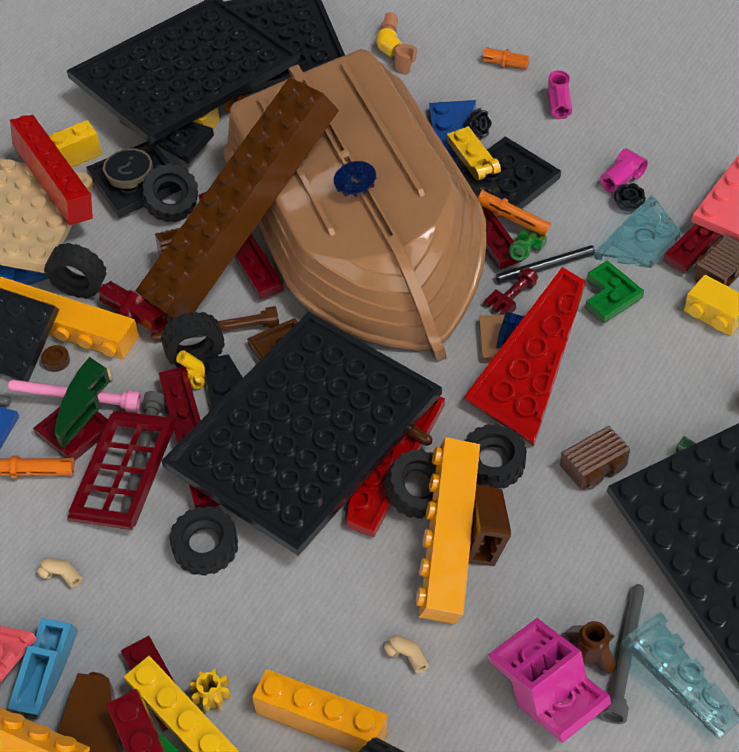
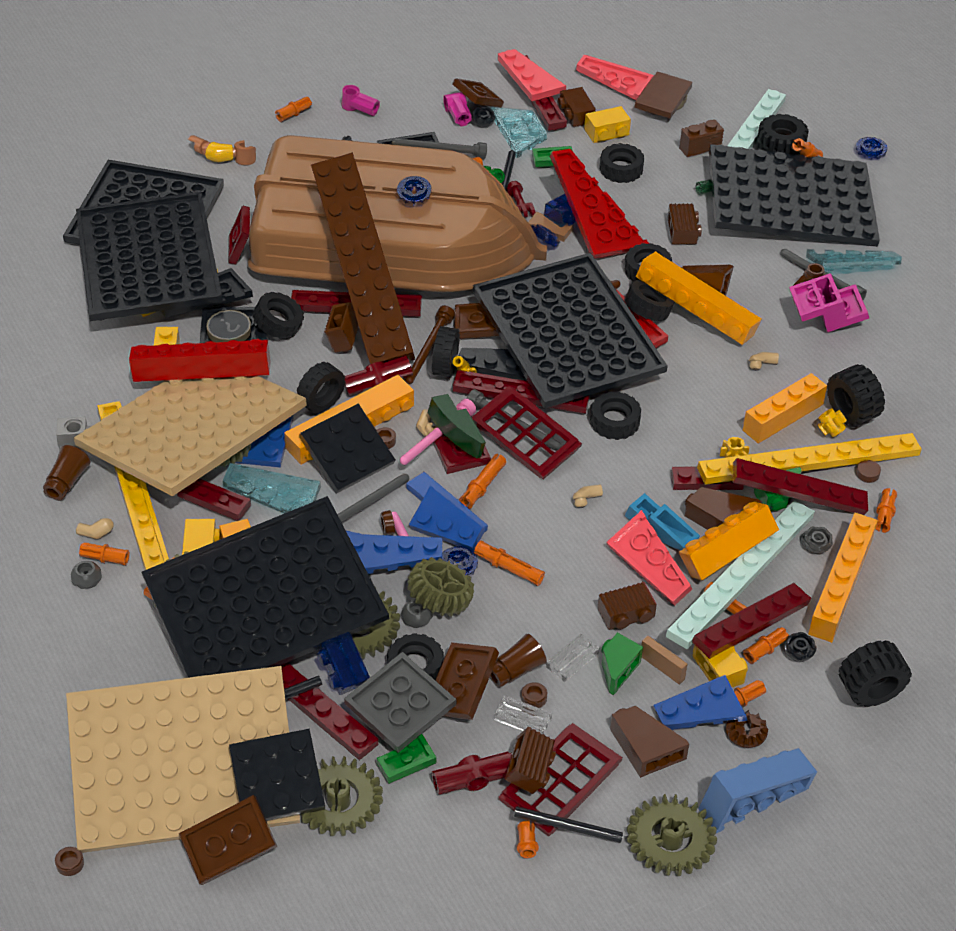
camera: 65 degrees left, 5 degrees down
(464, 328) = (545, 235): none -> clear blue gear
(566, 219) = (477, 150): none -> dark grey piece
(656, 367) = (621, 173): none -> black tyre
(660, 173) = (478, 92): none -> reddish brown tile

